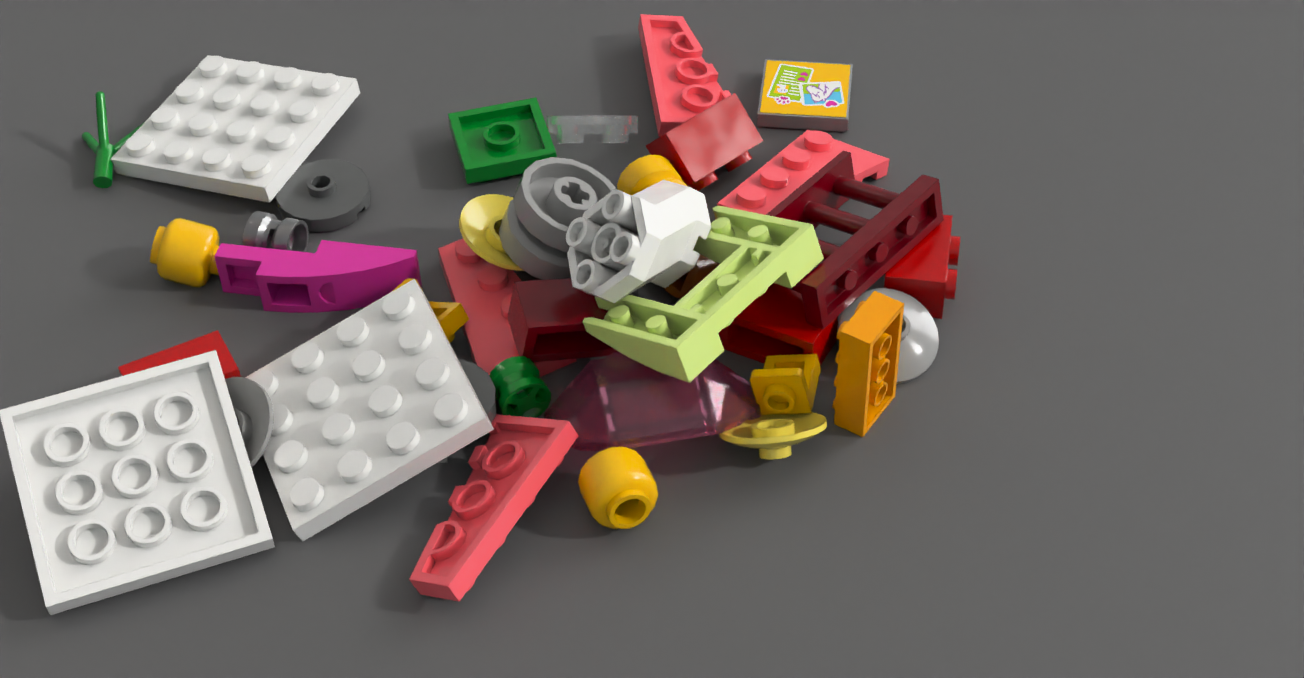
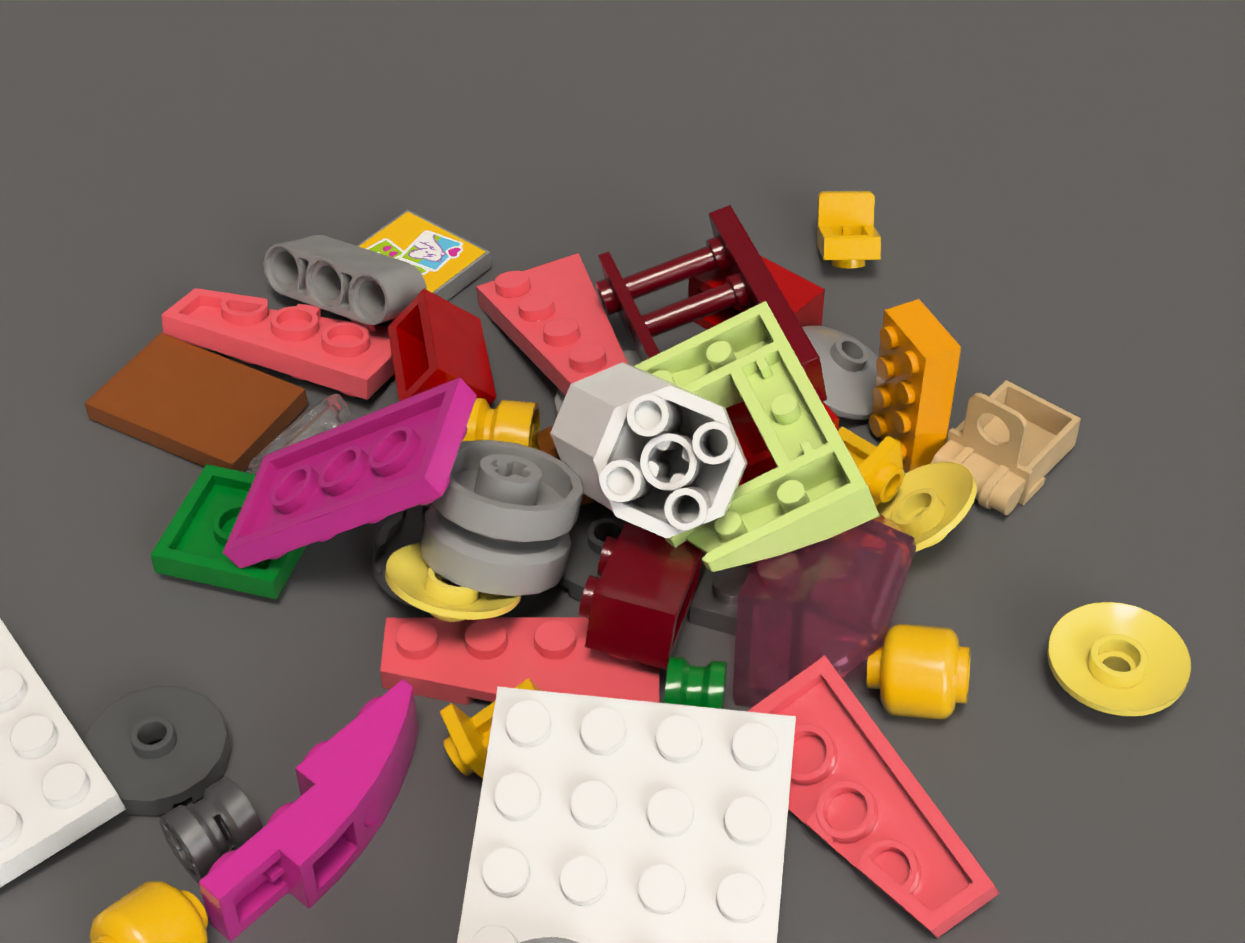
camera: 60 degrees left, 0 degrees up
(516, 140) = (352, 474): none -> dark pink plate
(595, 71) = (196, 404): none -> dark orange tile
(721, 575) = (1119, 659): none -> light yellow dish
(744, 66) = (342, 278): none -> light grey beam
(888, 456) = (1009, 444): none -> tan piece
(1053, 280) = (847, 228): none -> yellow bracket

